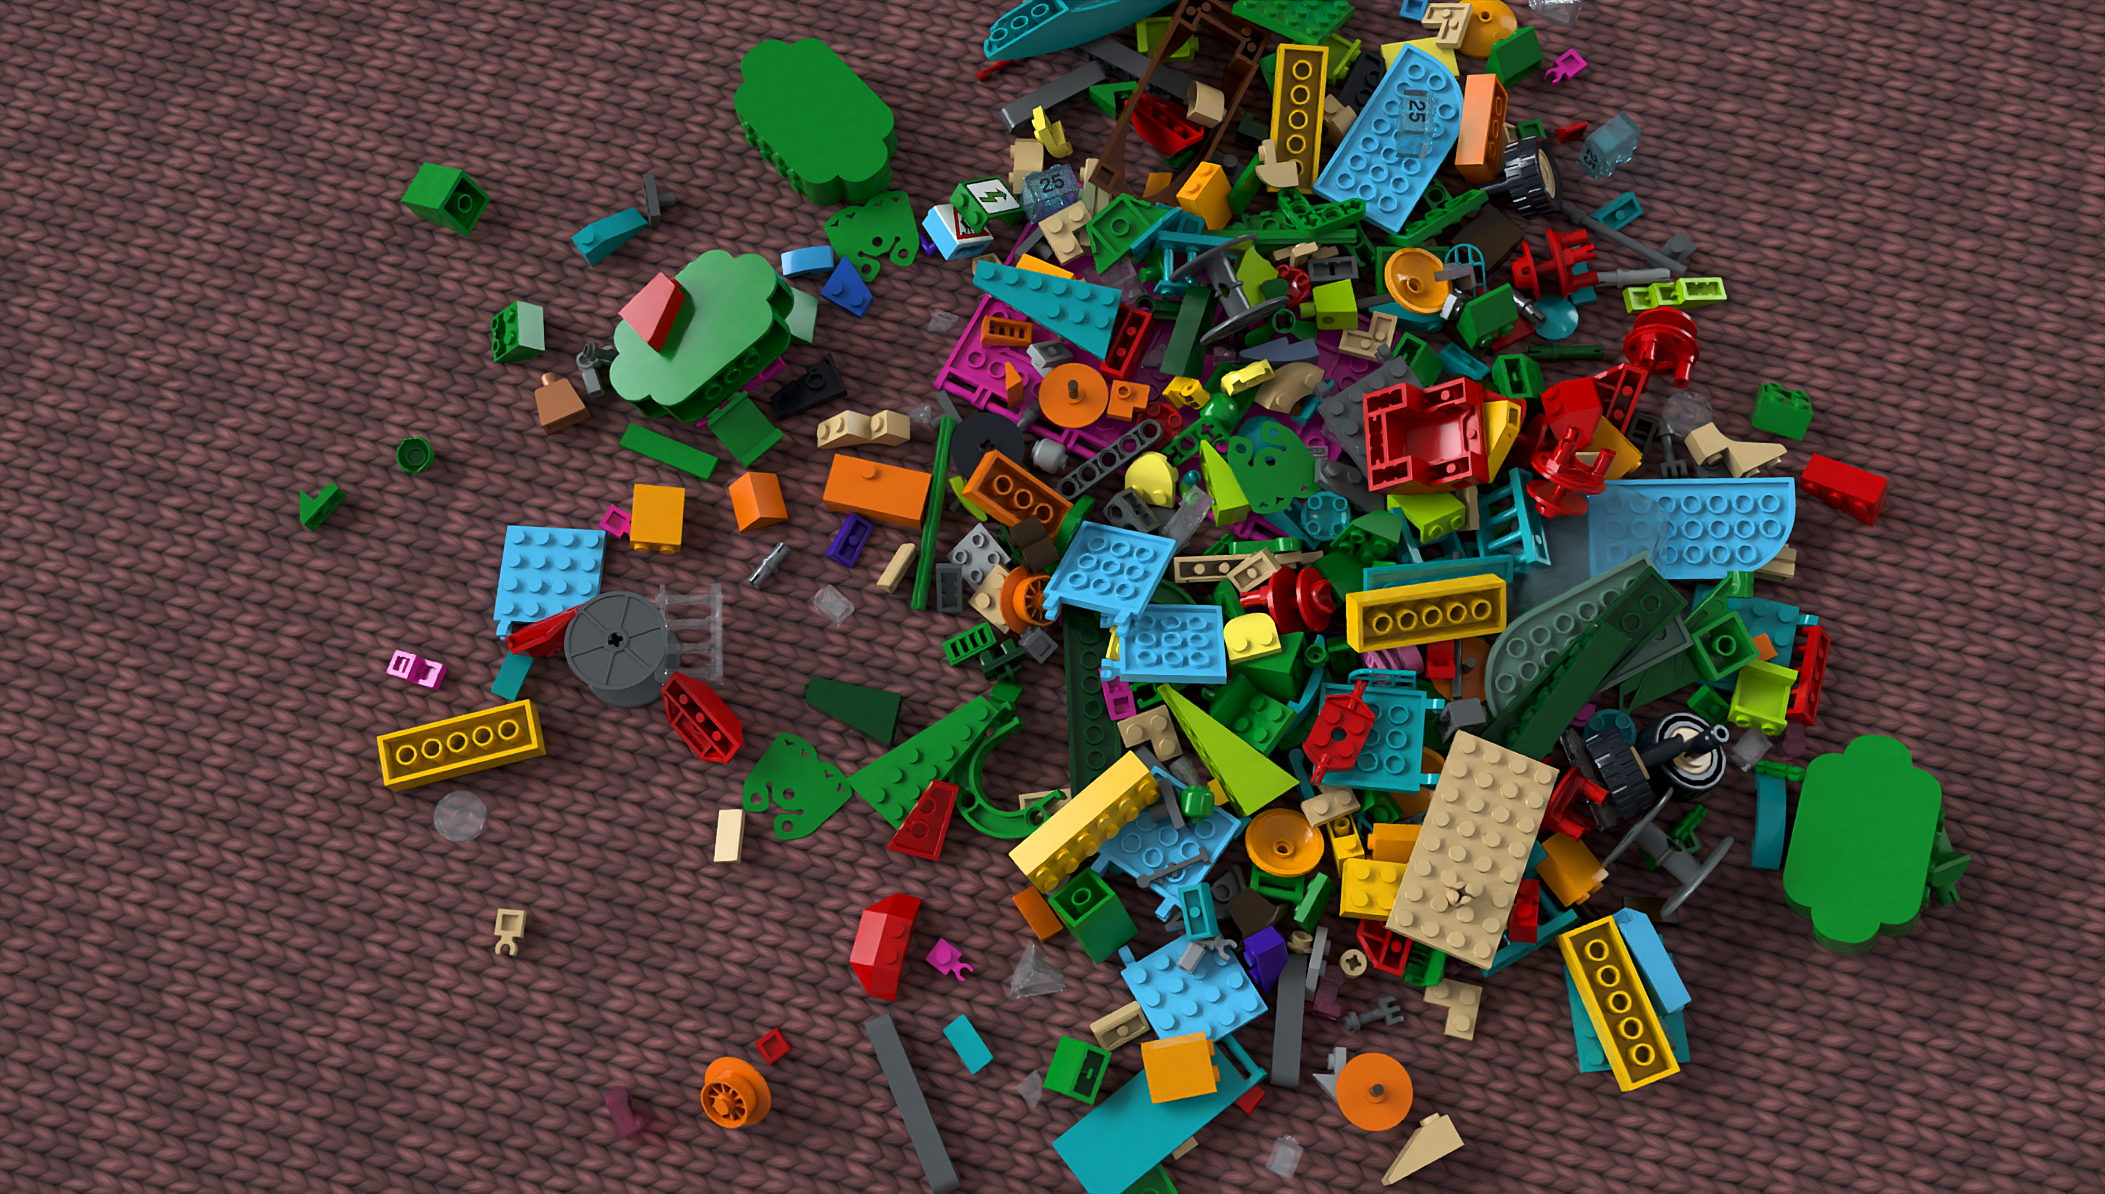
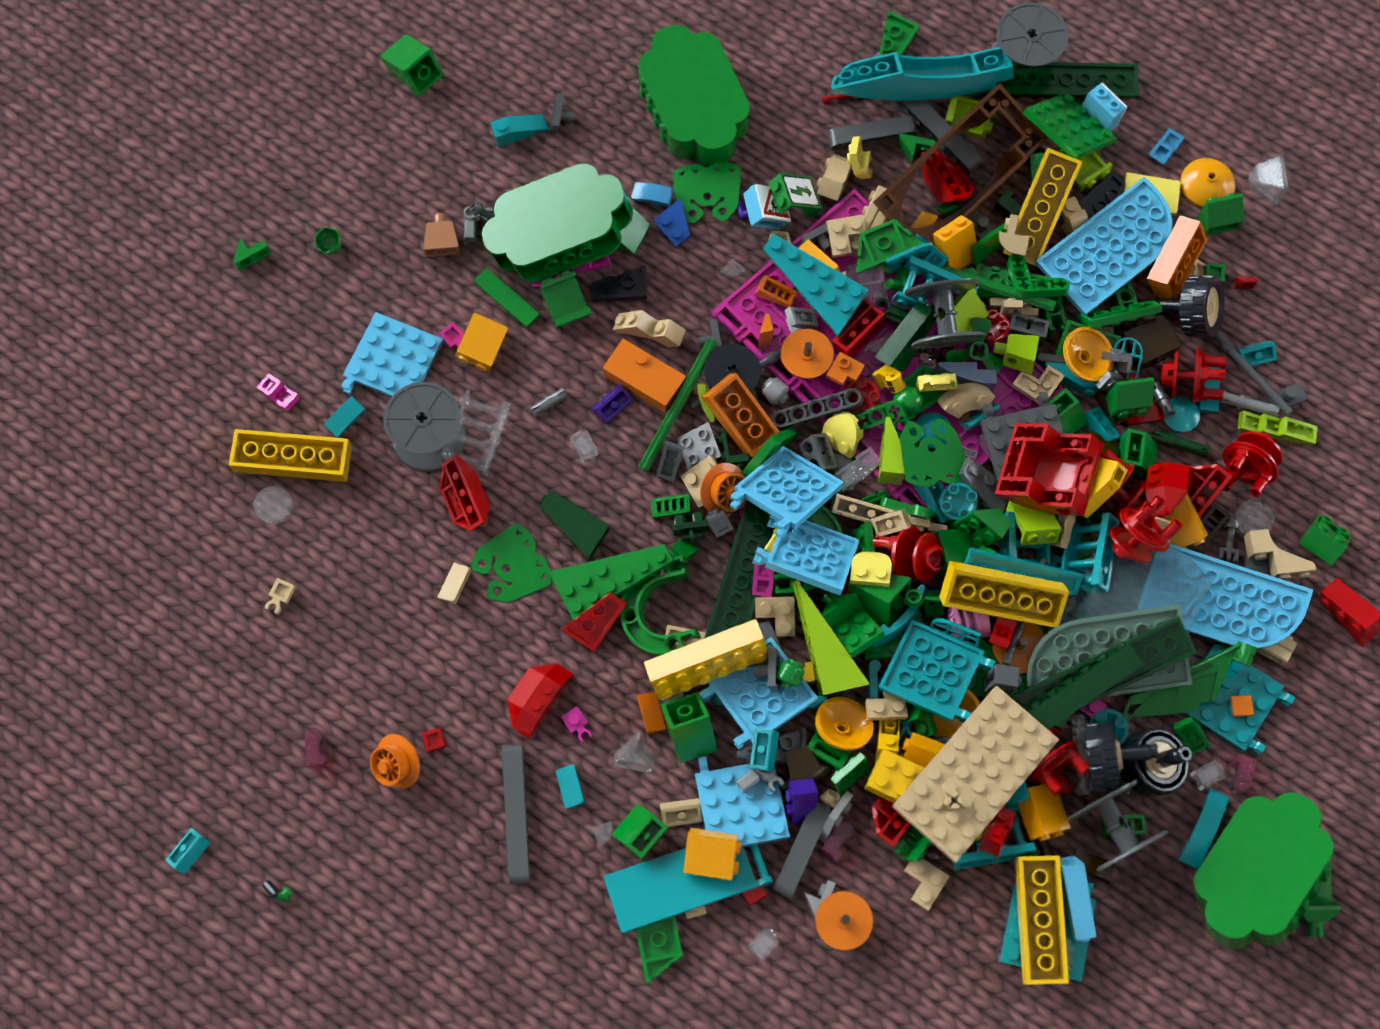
camera: 15 degrees right, 0 degrees up
(518, 333) = (429, 177): green slope -> none
(542, 636) = (372, 398): red wedge -> none
(654, 310) = (530, 193): slope -> none
(757, 501) = (556, 353): orange slope -> none
(897, 567) = (639, 434): tan slope -> none
(921, 414) = (694, 330): clear tile -> none
(1034, 544) = (740, 450): dark brown brick -> none
(1048, 192) = (842, 201): clear light blue brick -> none
(1144, 881) = (734, 715): dark grey piece -> none
(1185, 772) = (791, 649): clear cone -> none
(1188, 481) = (869, 442): teal arm -> none
(1205, 104) = (979, 174): tan brick -> none
(1341, 713) = (915, 645): red plate -> none
(1351, 968) = (860, 829): tan wheel -> none
(1353, 1022) = (847, 867): dark grey hinge -> none
(1415, 124) = (1127, 239): clear light blue brick -> none
(1428, 1143) = (871, 970): tan slope -> none
(1450, 19) = (1185, 172): tan plate -> none
(1566, 66) = (1260, 233): dark pink plate -> none
(1609, 146) = (1268, 302): clear light blue brick -> none
(1689, 823) = (1143, 812): green axle -> none
(1721, 646) = (1212, 693): green slope -> none
(1761, 696) = (1230, 739): lime panel -> none
(1780, 770) = (1223, 797): green axle -> none
(1810, 675) = (1272, 738): red hinge -> none

